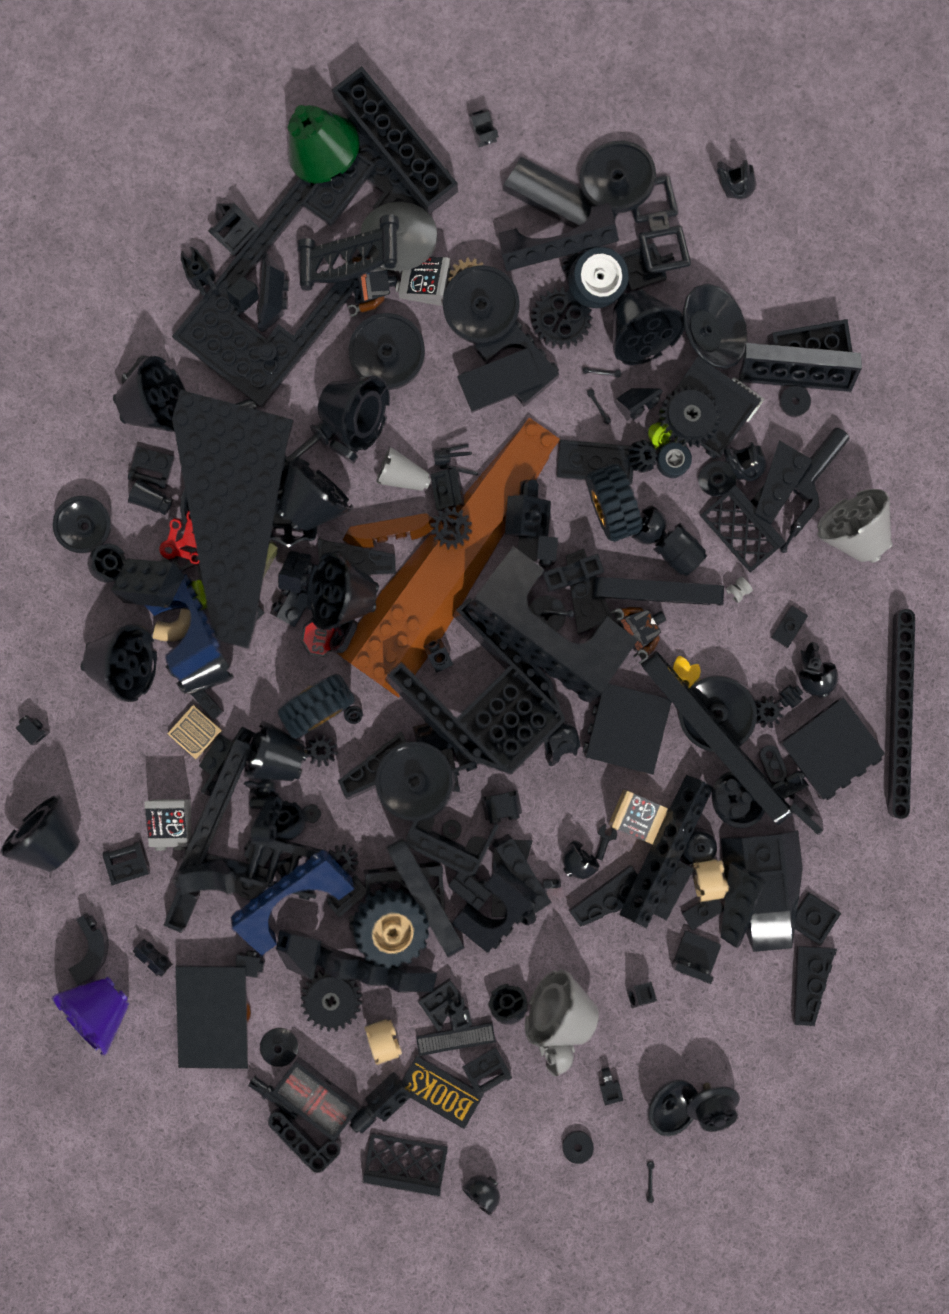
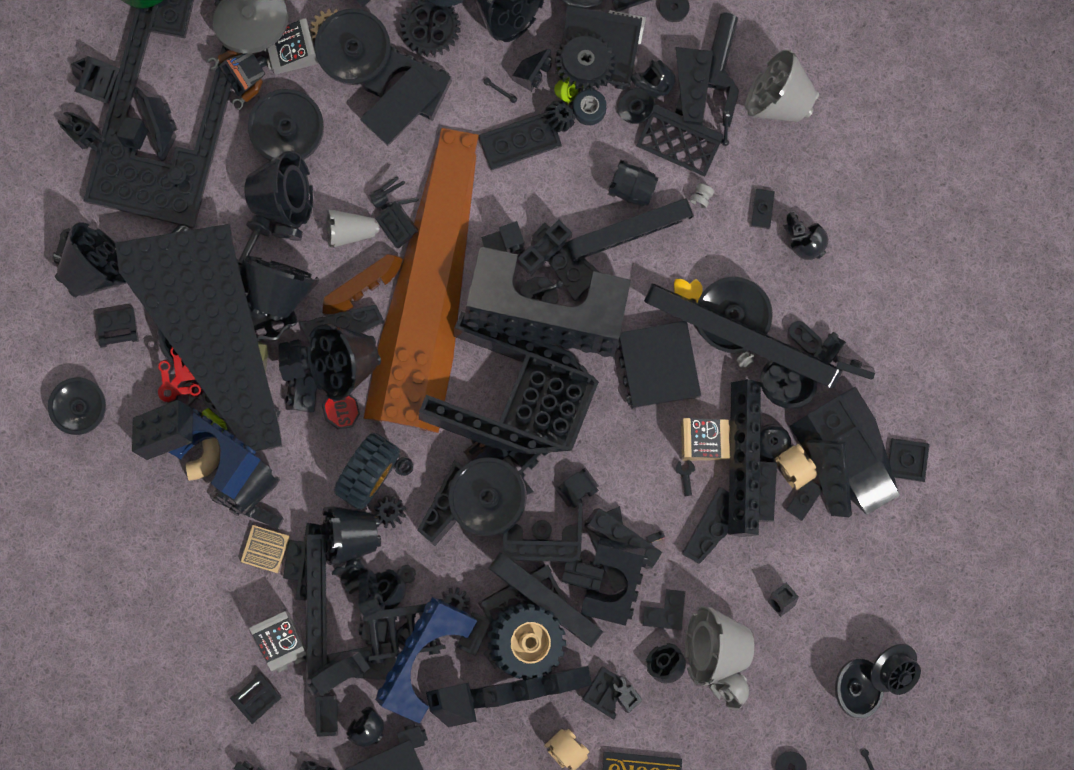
camera: 20 degrees left, 5 degrees down
(31, 730) = (114, 615): black brick -> none
(44, 837) = (170, 704): black cone -> none
(106, 562) = (115, 430): black cylinder -> none
(122, 662) = (170, 512): black cone -> none
(149, 498) = (128, 354): black plant -> none
(211, 938) = (367, 728): none -> black cylinder
(311, 255) = (179, 71): black piece -> none
(329, 1014) = (514, 744): black gear -> none
(343, 636) = (362, 399): black plate -> none
(441, 660) = (463, 379): black brick -> none
(450, 1040) = (632, 721): tile -> none
(458, 523) = (422, 261): black gear -> none
(483, 1066) = (669, 733): black plate -> none
(527, 513) = (478, 212): black brick -> none
(529, 918) = (648, 577): black plate -> none
(533, 960) = (669, 616): none -> black plate
(561, 742) = (604, 402): black helmet -> none
(578, 861) = (670, 505): black cylinder -> none
(610, 1089) = (796, 700): black plate -> none
(614, 502) = (553, 167): black wheel -> none
(617, 373) = (503, 54): black hinge -> none
(641, 626) = (631, 267): torso -> none
(653, 526) = (597, 175): black cylinder -> none
(696, 957) = (817, 542): black bracket -> none
(708, 760) = (745, 360): none -> light grey plate
(768, 719) = (784, 289): black gear -> none
(791, 696) = (793, 269): black gear -> none
(811, 977) = (929, 512): black wing -> none
(832, 748) = (852, 299): black panel -> none
(905, 723) = (900, 231): black beam -> none

